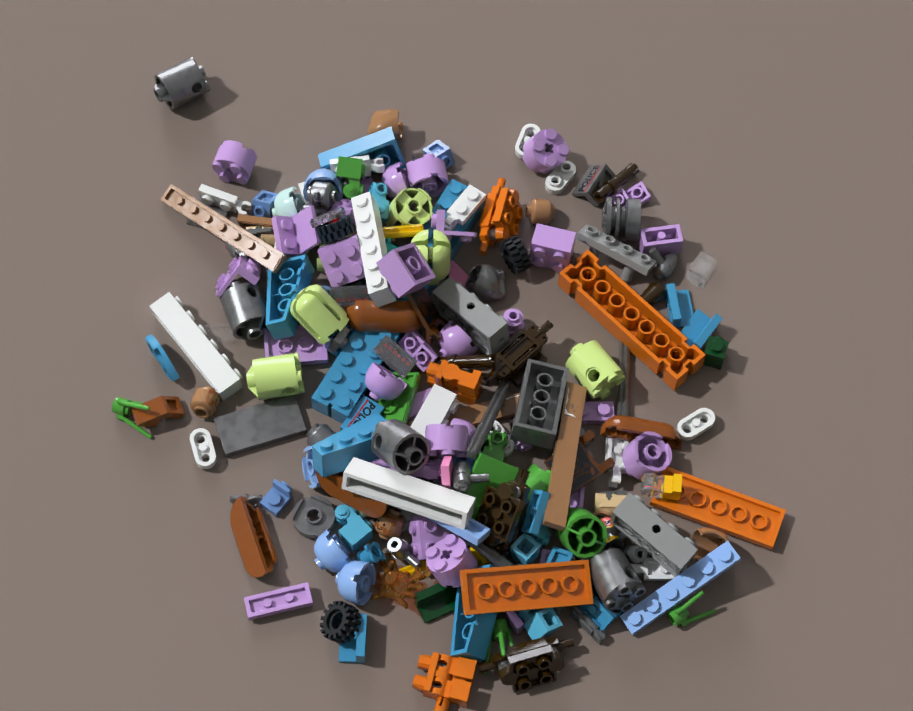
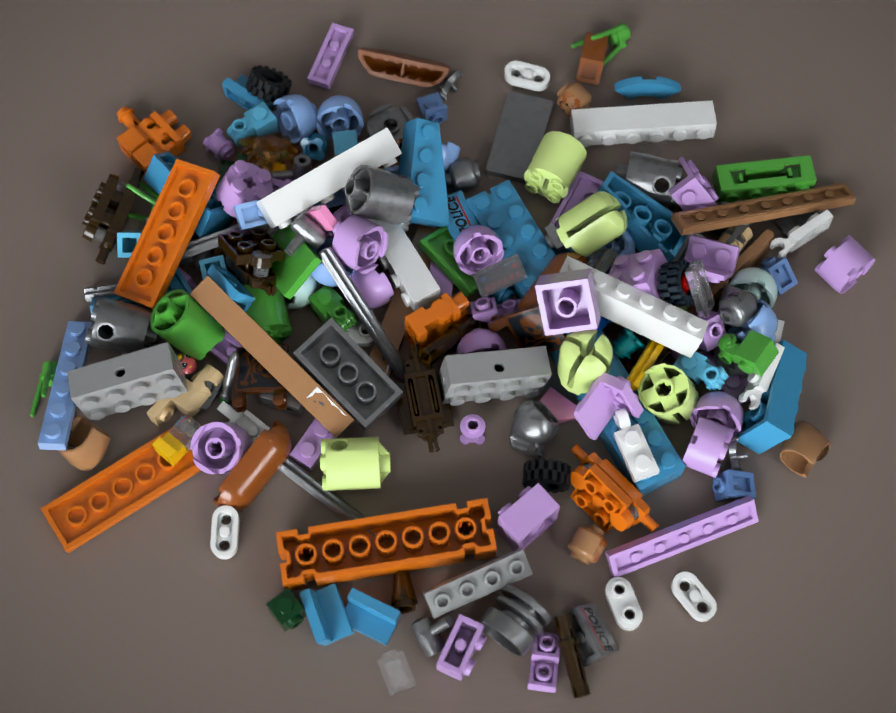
camera: 125 degrees right, 5 degrees up
(211, 264) = (763, 178): none -> bright green brick
(380, 608) = (255, 123): none -> medium azure brick
(415, 627) = (219, 145): none -> lavender brick
(490, 163) = (682, 536): none -> lavender plate
(545, 151) = (646, 596): lavender brick -> none
(593, 486) = (225, 394): none -> flat silver piece

